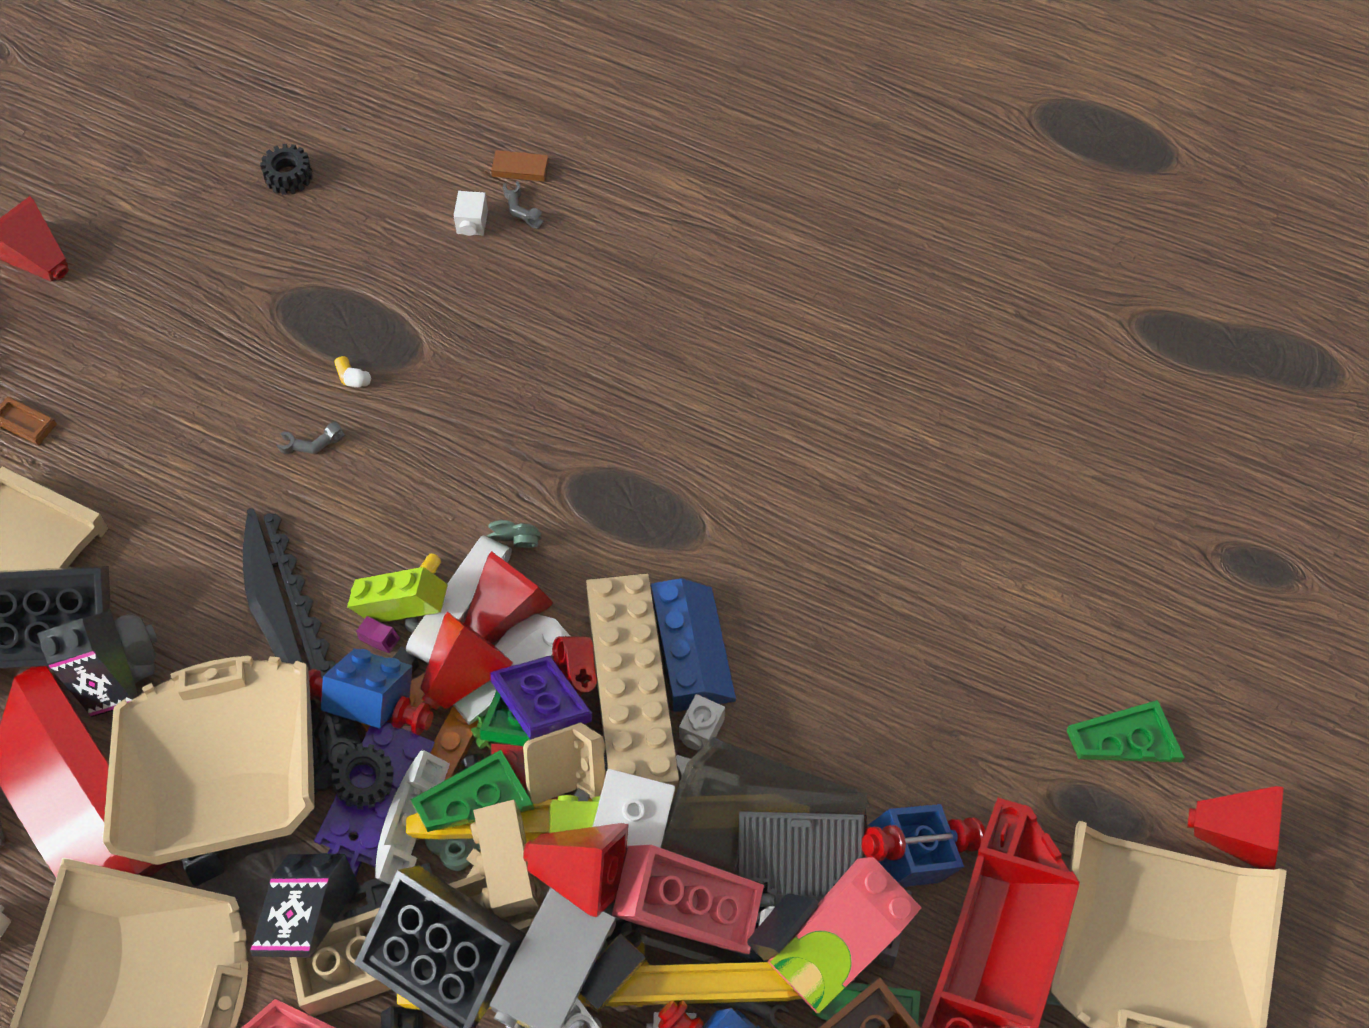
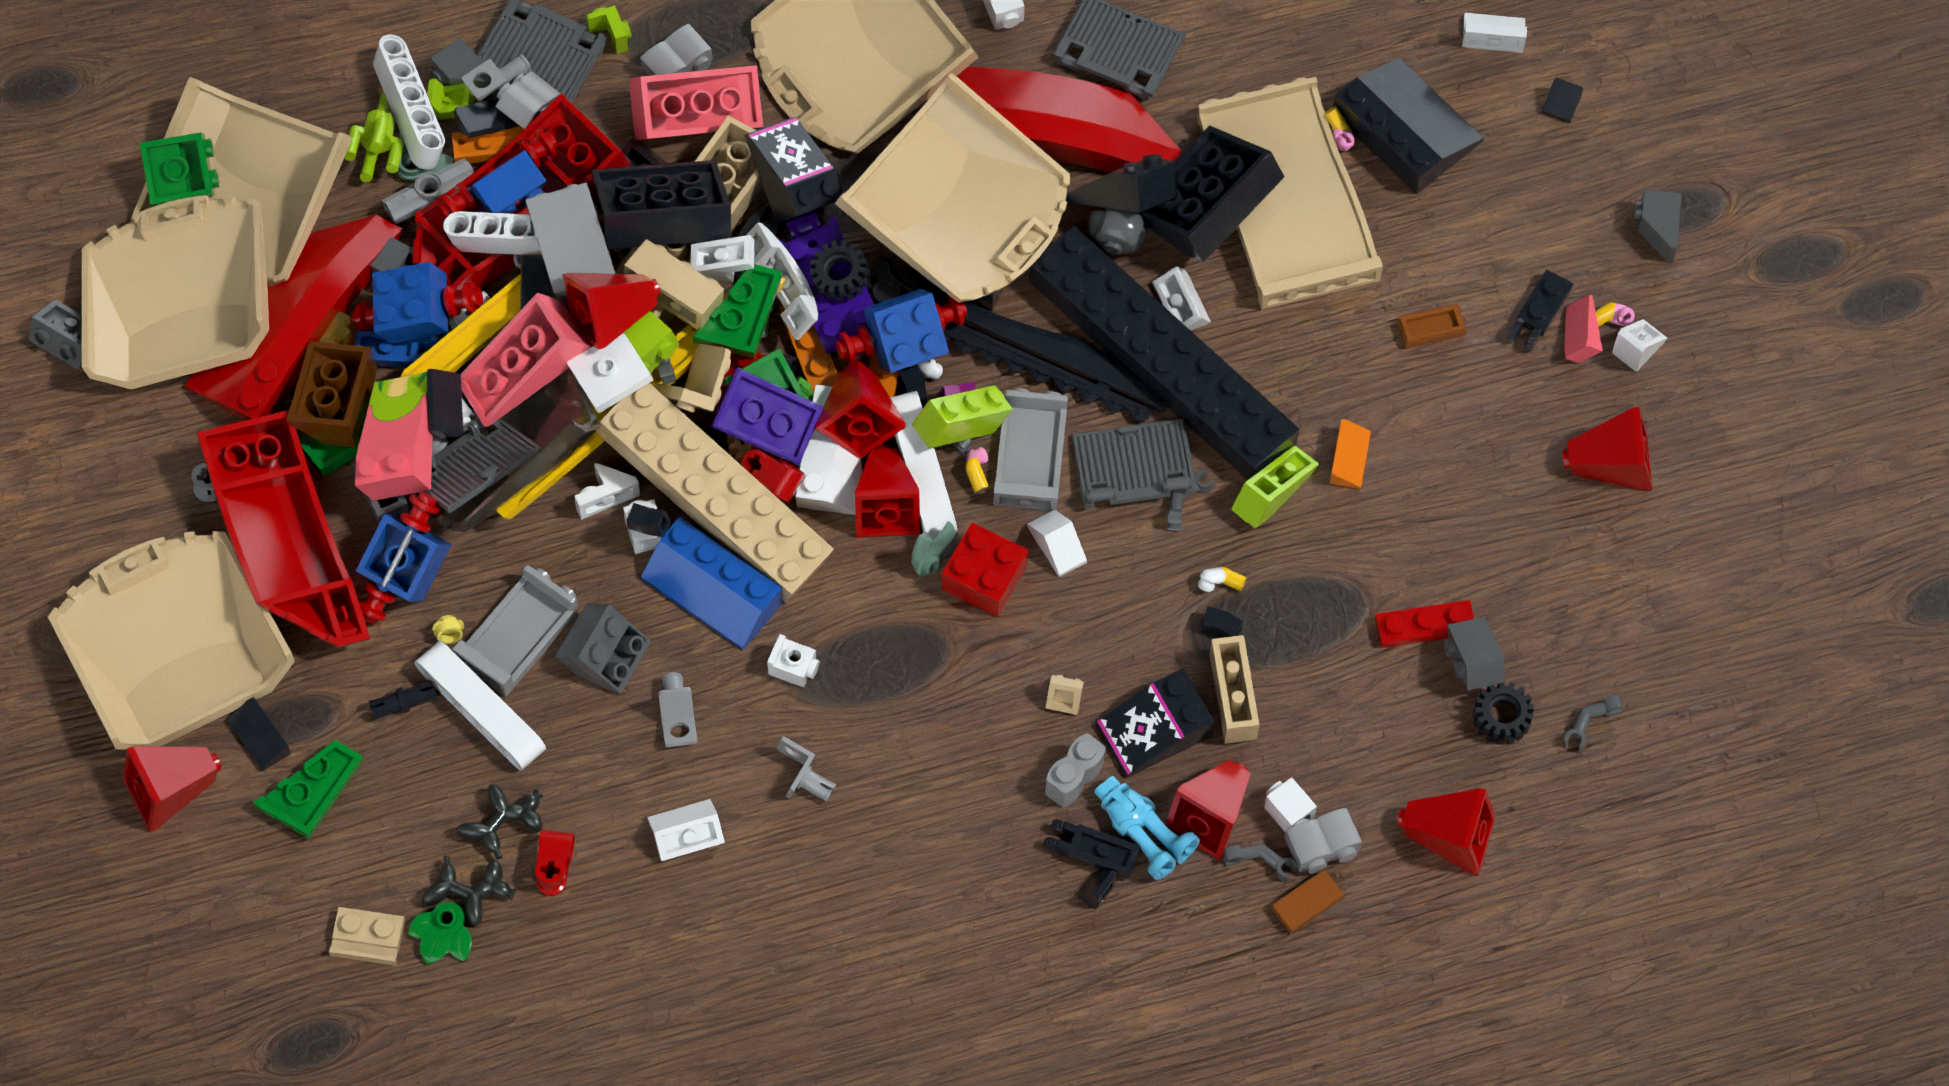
camera: 135 degrees right, 5 degrees up
(151, 576) = (1181, 298): none -> white slope
(179, 384) = (1350, 455): none -> orange slope
(209, 537) = (1162, 353): none -> black brick
(252, 395) = (1273, 486): none -> lime slope
(260, 131) = (1609, 707): none -> dark grey arm
(261, 199) = (1475, 653): none -> dark grey brick
(264, 253) = (1420, 623): none -> red plate
(316, 490) = (1133, 464): none -> dark grey window
(382, 547) = (1031, 451): none -> light grey panel
(384, 347) = (1221, 623): none -> black piece
(391, 126) = (1452, 826): none -> red slope
(423, 484) = (1058, 541): none -> white slope
(425, 293) = (1234, 689): none -> tan brick
(441, 854) = (723, 257): none -> white slope
(469, 176) = (1323, 840): none -> light grey brick
(493, 319) = (1156, 723): none -> black slope
(494, 493) = (984, 569): none -> red brick
(514, 242) = (1210, 806): none -> red slope
(532, 381) = (1064, 694): none -> tan tile
(566, 284) = (1132, 812): none -> medium azure piece
(576, 328) = (1070, 773): none -> light grey brick
(613, 282) = (1094, 848): none -> black hinge
(635, 260) = (1097, 887): none -> black slope
(688, 552) = (794, 672): none -> white brick
(705, 700) = (648, 520): none -> black piece
(755, 465) = (806, 778): none -> light grey bracket
(800, 578) = (676, 710): none -> light grey bracket
(815, 662) = (603, 647): none -> dark grey slope
(867, 498) = (686, 829): none -> white panel
(869, 731) = (518, 630): none -> light grey panel
(919, 774) = (448, 629): none -> light yellow plate
(945, 696) = (480, 705): none -> white beam
(983, 543) = (554, 858): none -> red piece
(1000, 749) = (402, 700): none -> black pin
(1015, 601) = (487, 832): none -> pearl dark grey piece
(1039, 563) = (473, 896): none -> pearl dark grey piece
(1104, 561) = (440, 937): none -> green plate
(1136, 812) = (259, 734): none -> black slope
(1161, 603) = (367, 936): none -> tan plate

